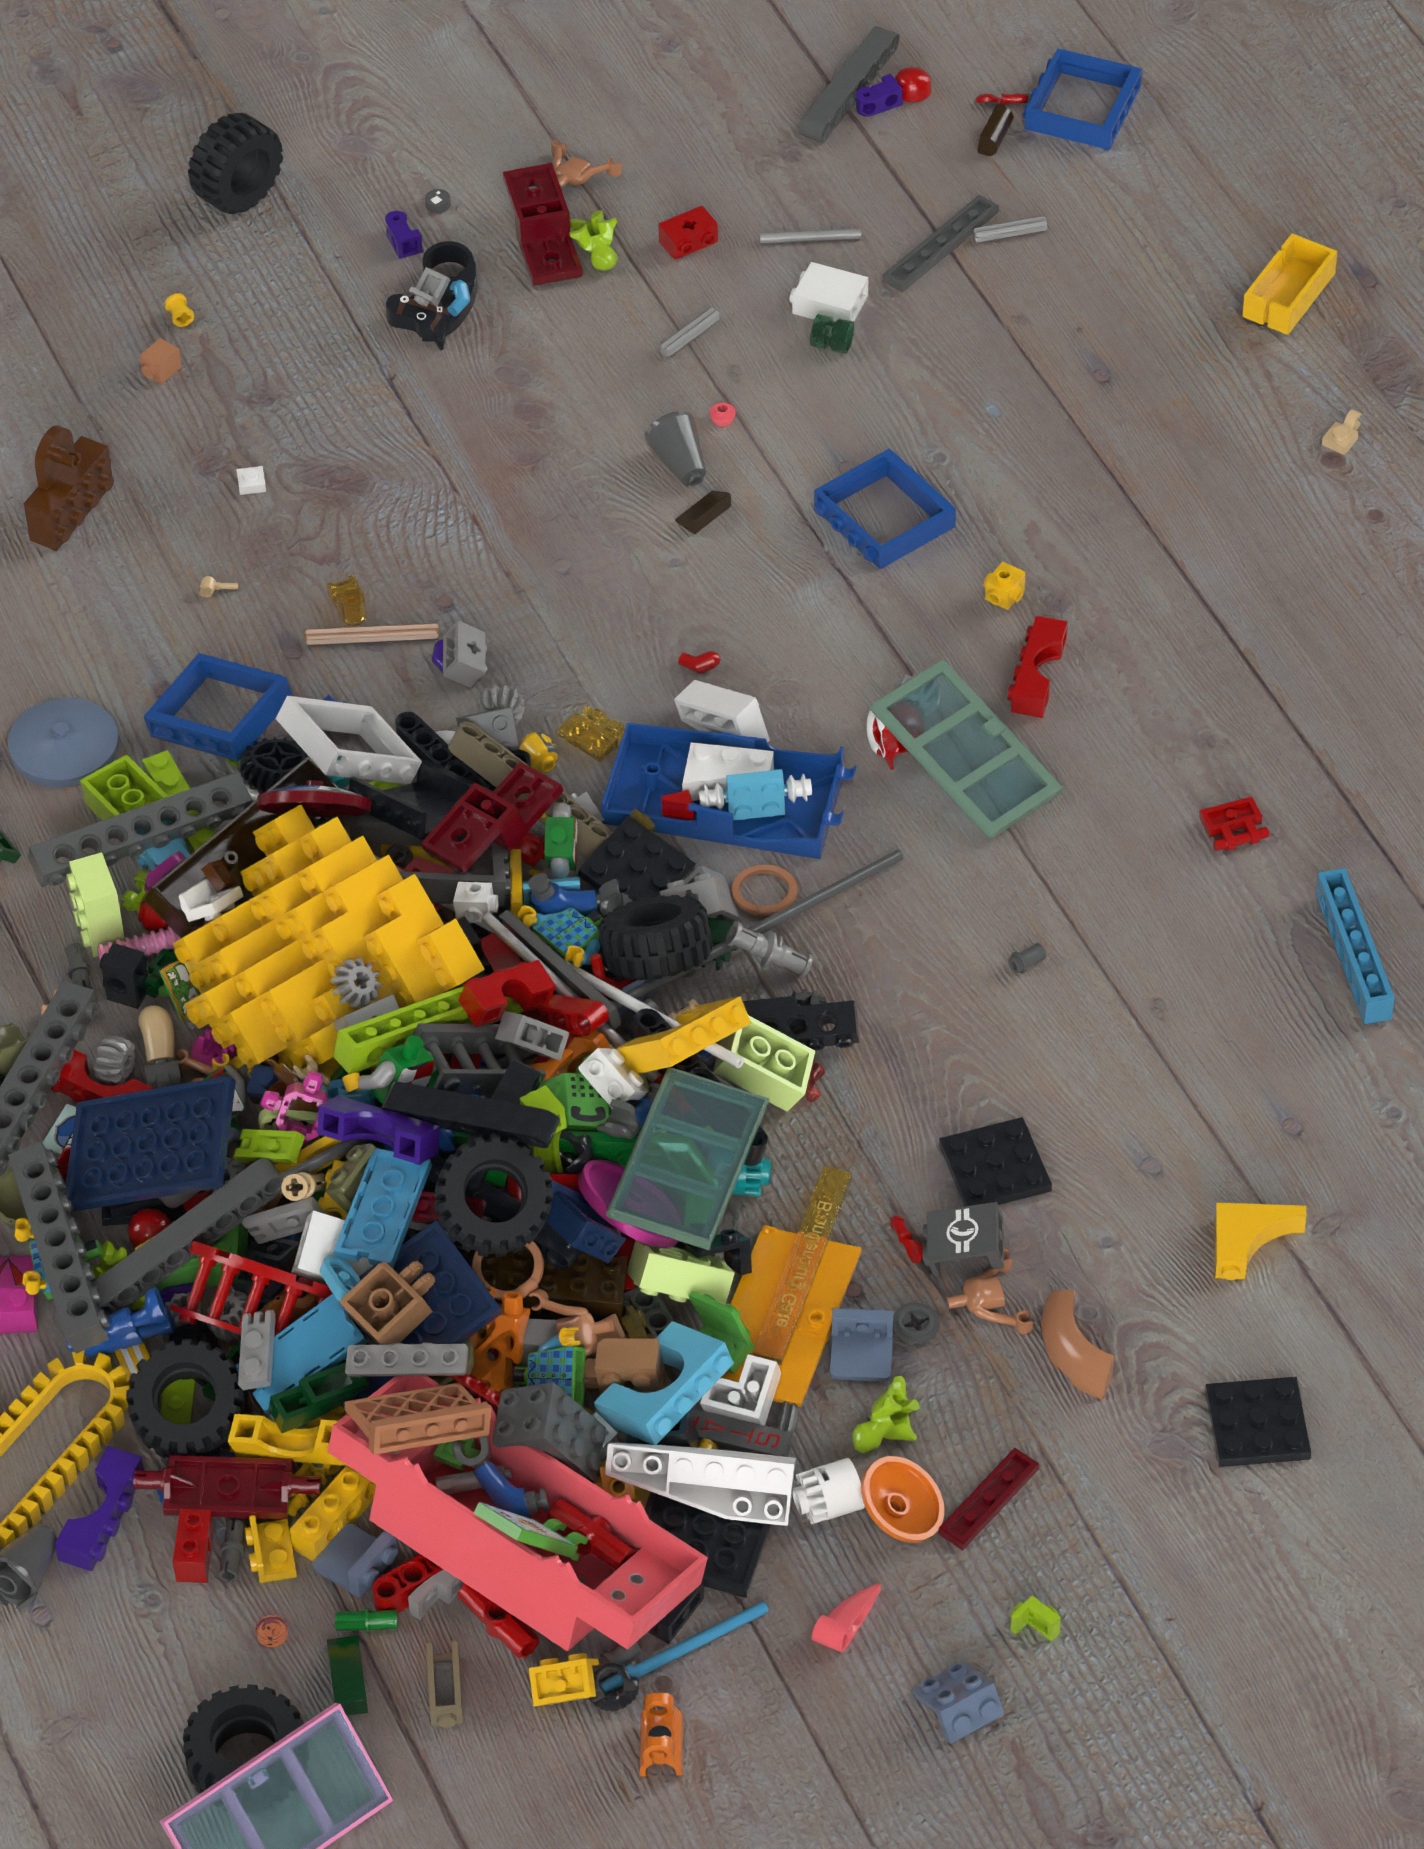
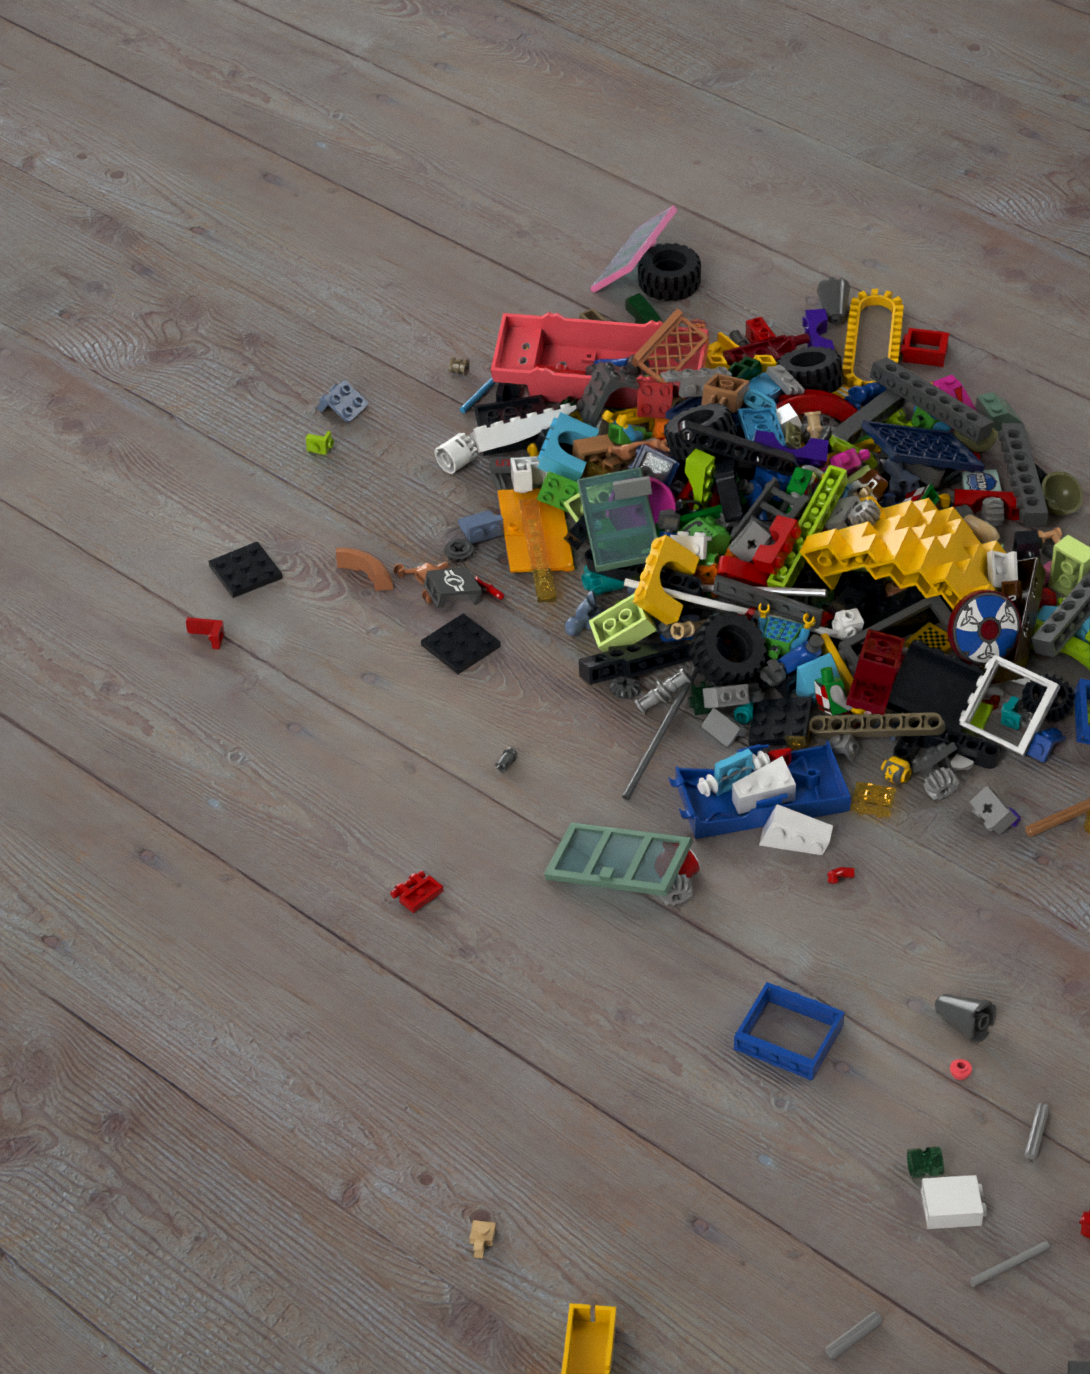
camera: 155 degrees right, 5 degrees down
(162, 870) = (1050, 597): magenta plate -> none
(531, 1531) = (580, 332): bright green tile -> none
(646, 1169) = (632, 488): none -> light grey panel
(661, 1734) = (474, 335): orange piece -> none
(704, 511) = (918, 986): dark brown slope -> none
(721, 1697) = (459, 366): none -> dark tan bush
(766, 910) = (696, 732): nougat piece -> none
(800, 1124) = (584, 613): none -> sand blue animal
(812, 1092) = (592, 643): clear red arm -> none
(845, 1620) = (418, 414): coral piece -> none
(887, 1420) = (448, 499): lime animal -> none
(902, 1499) = (415, 460): orange dish -> none
(940, 243) = (901, 1301): dark grey tile -> none
(988, 1499) = (373, 490): dark red tile -> none
(1005, 585) = (664, 996): yellow brick -> none
(1045, 643) = (612, 968): red arch -> none
(1247, 1227) = (295, 652): yellow arch -> none
(1350, 1320) = (209, 627): none -> red bracket
(1354, 946) = (299, 829): dark azure brick -> none

